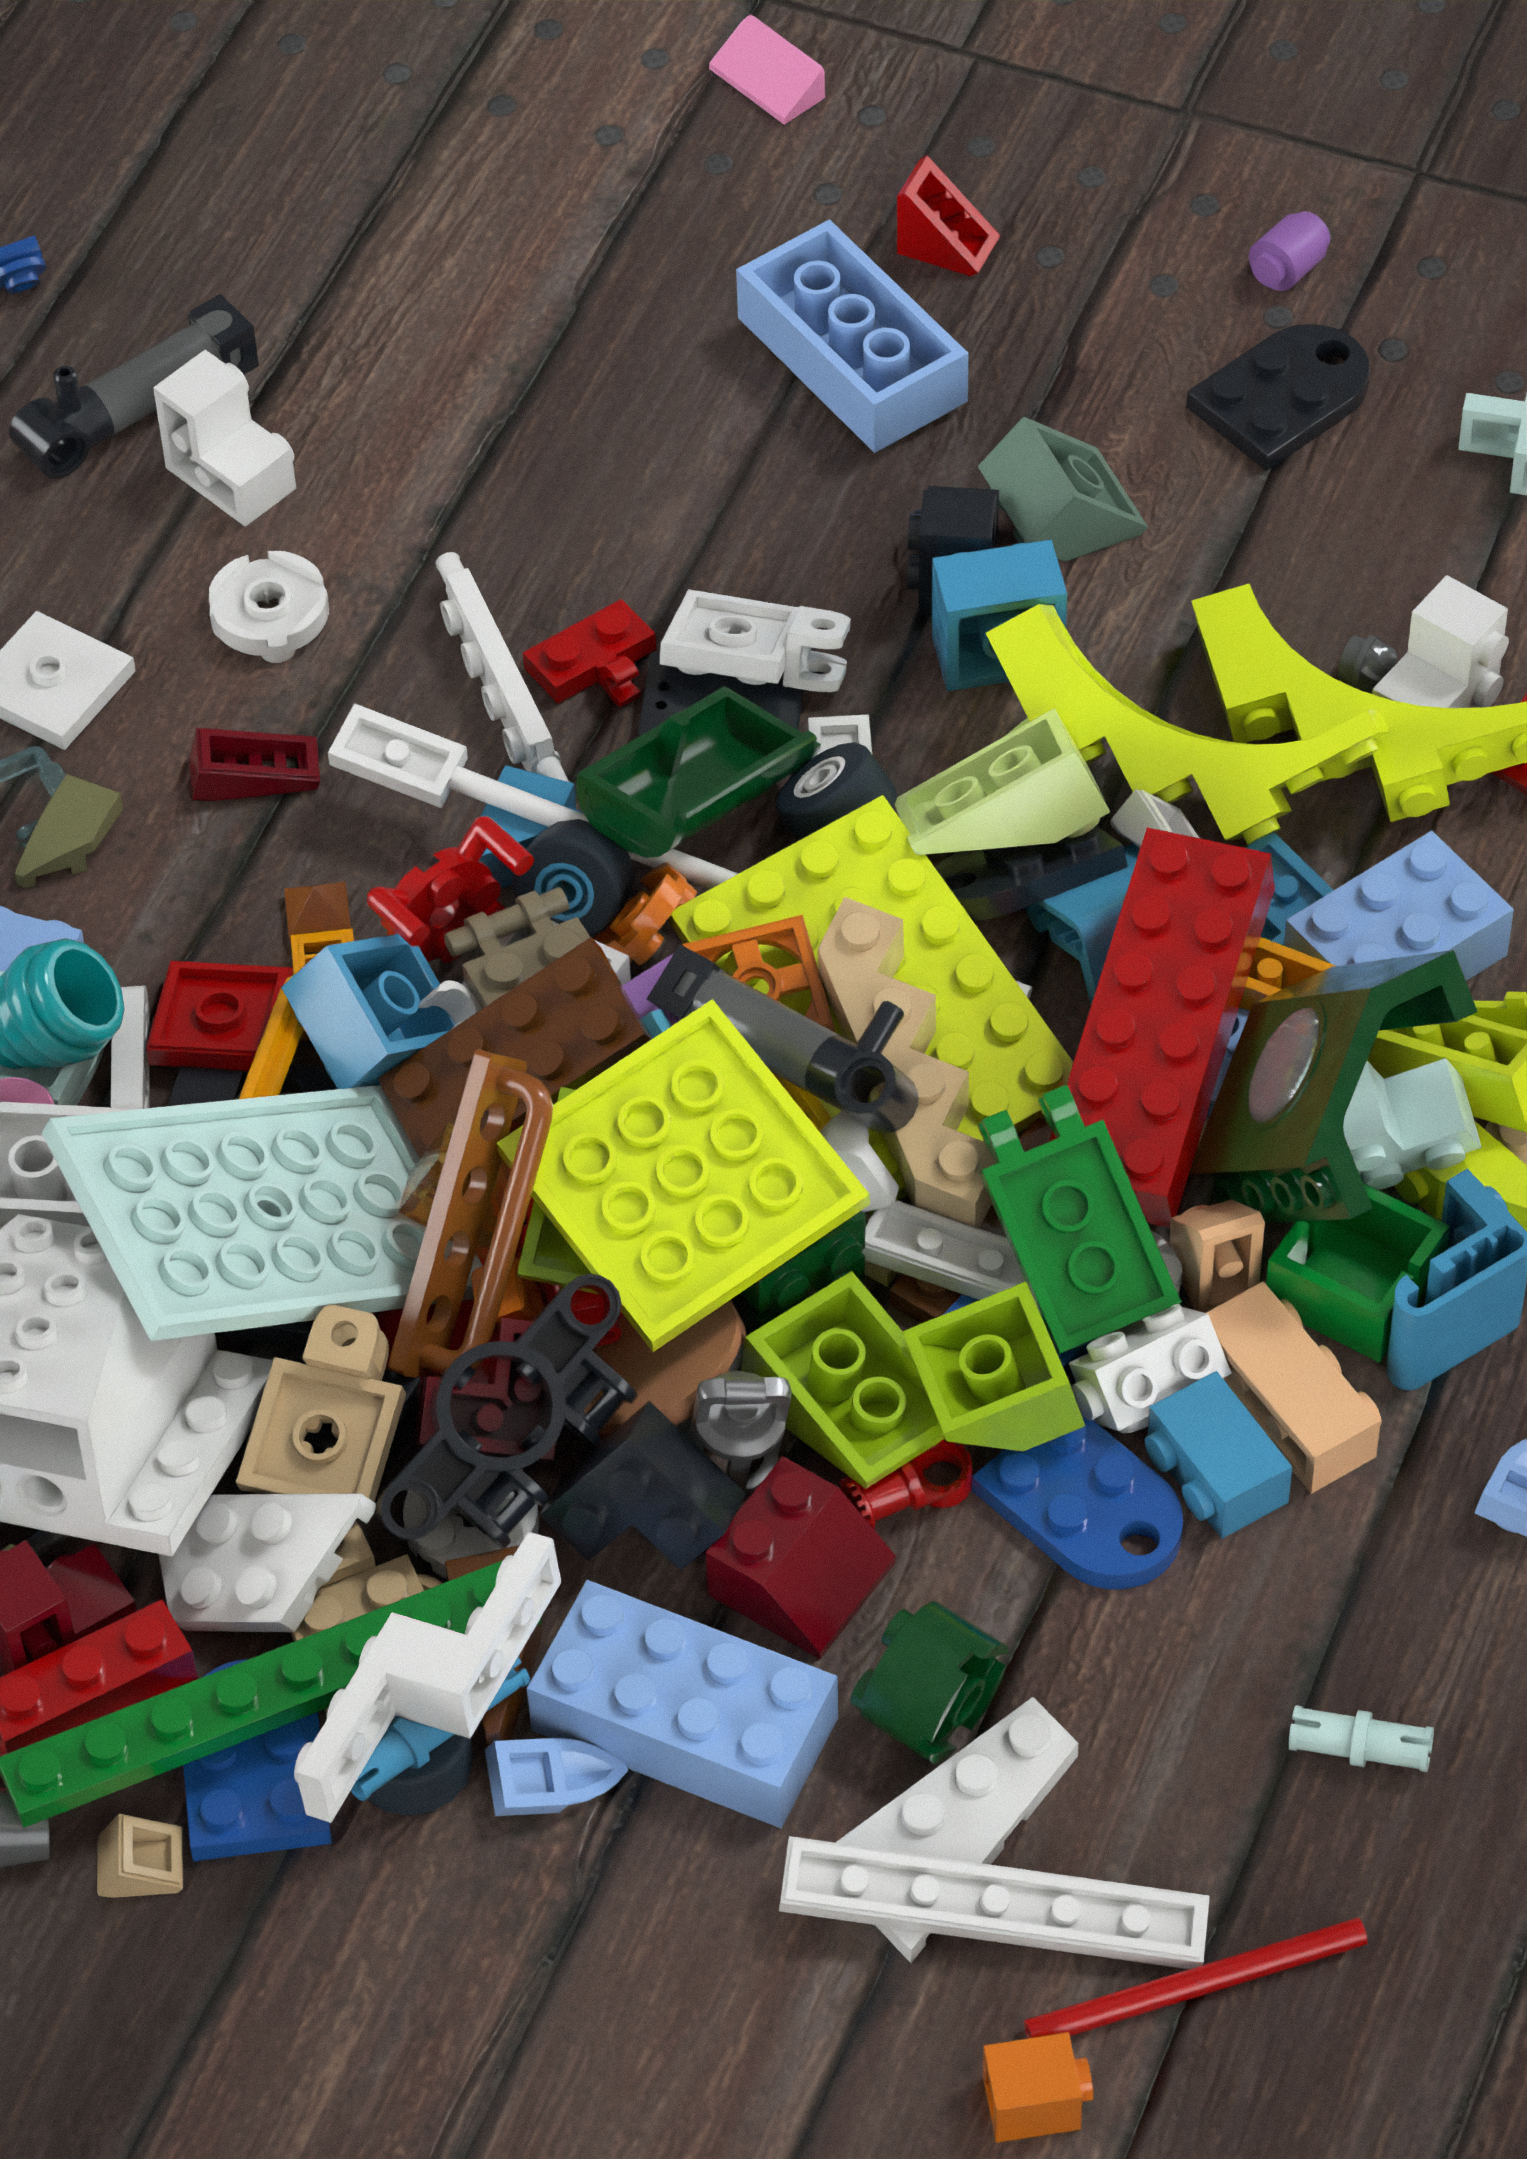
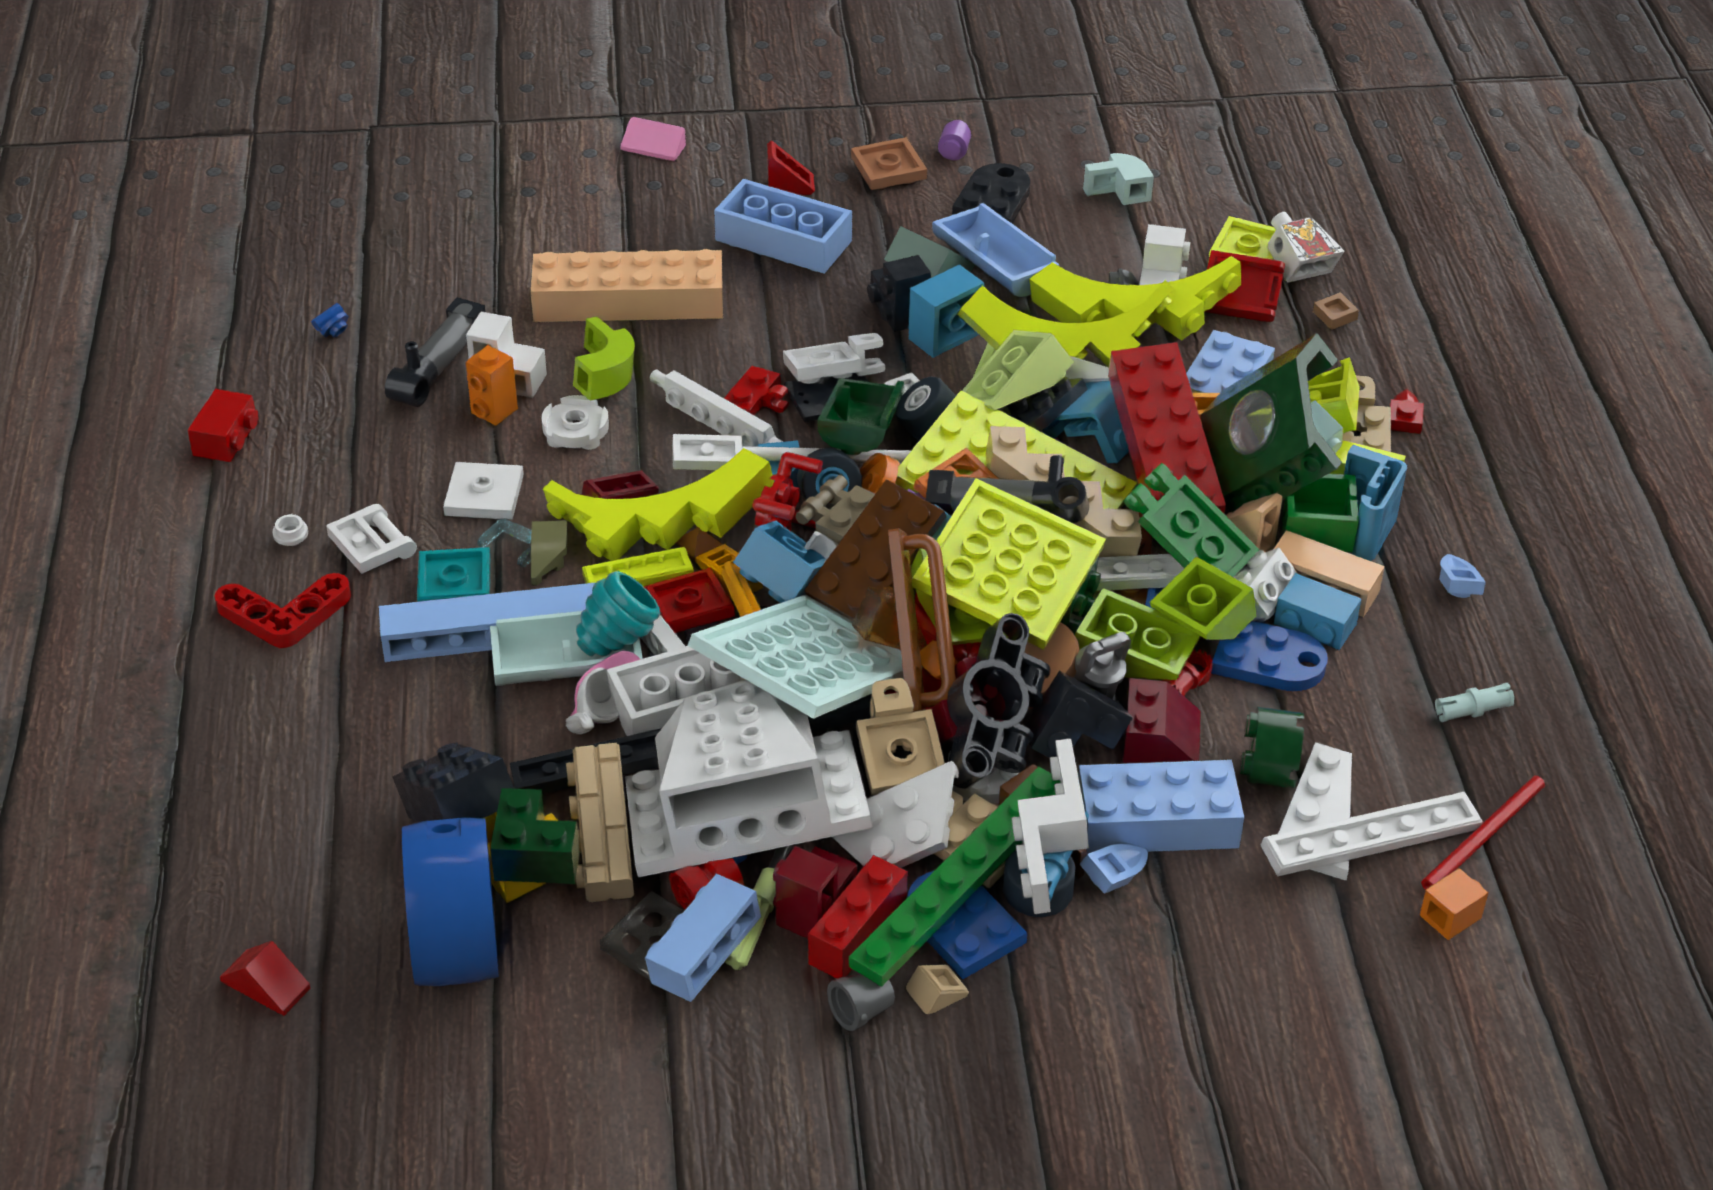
camera: 30 degrees left, 10 degrees down
(164, 489) = (491, 385): none -> orange brick
(178, 929) = (644, 568): none -> neon yellow plate
(272, 849) = (709, 503): none -> neon yellow arch
(381, 523) = (609, 364): none -> lime arch
(520, 365) = (627, 285): none -> light nougat brick
(1138, 261) = (888, 163): none -> nougat plate
(1184, 511) = (995, 247): none -> light blue container

